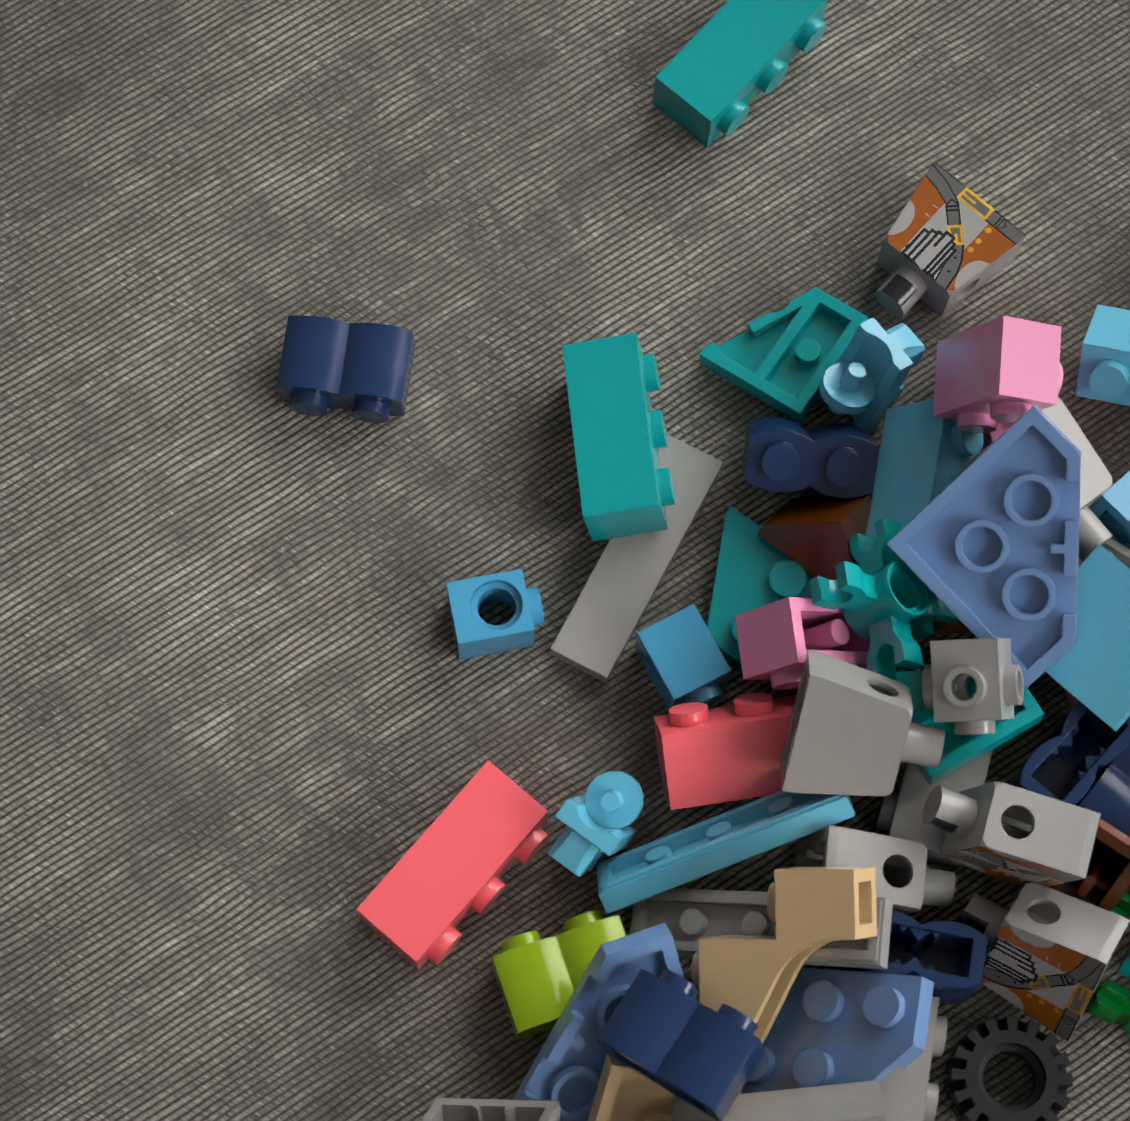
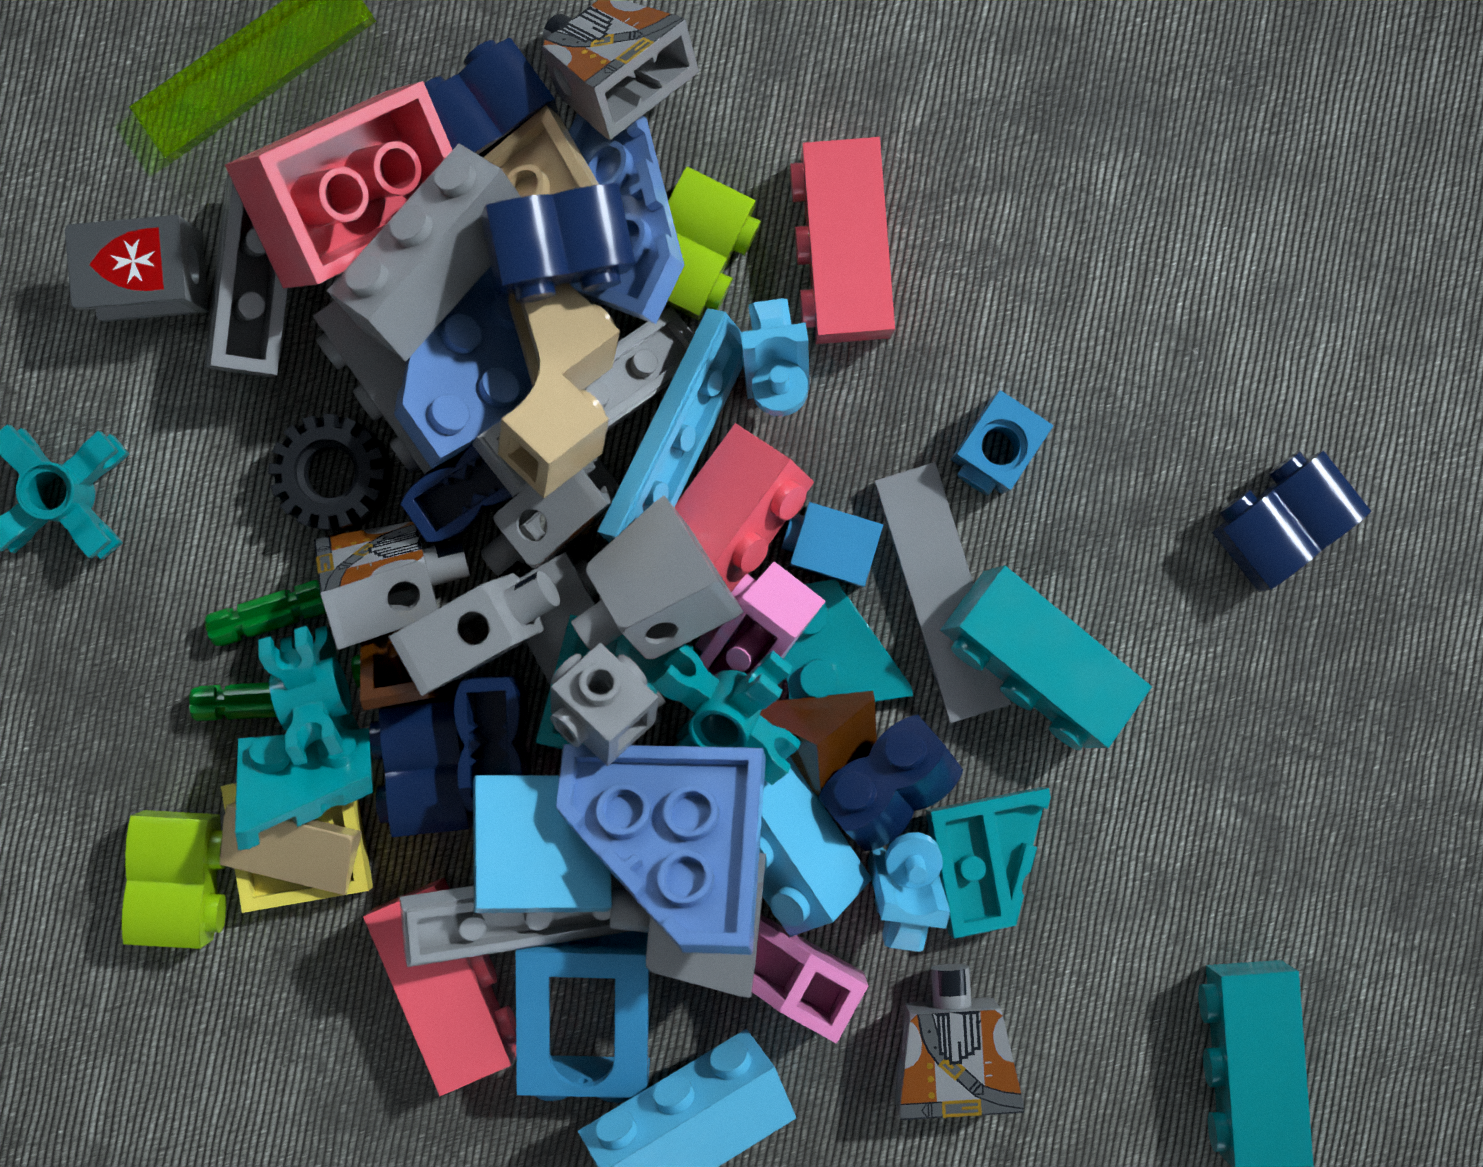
camera: 135 degrees right, 15 degrees up
(997, 373) = (805, 963): bright pink brick -> none

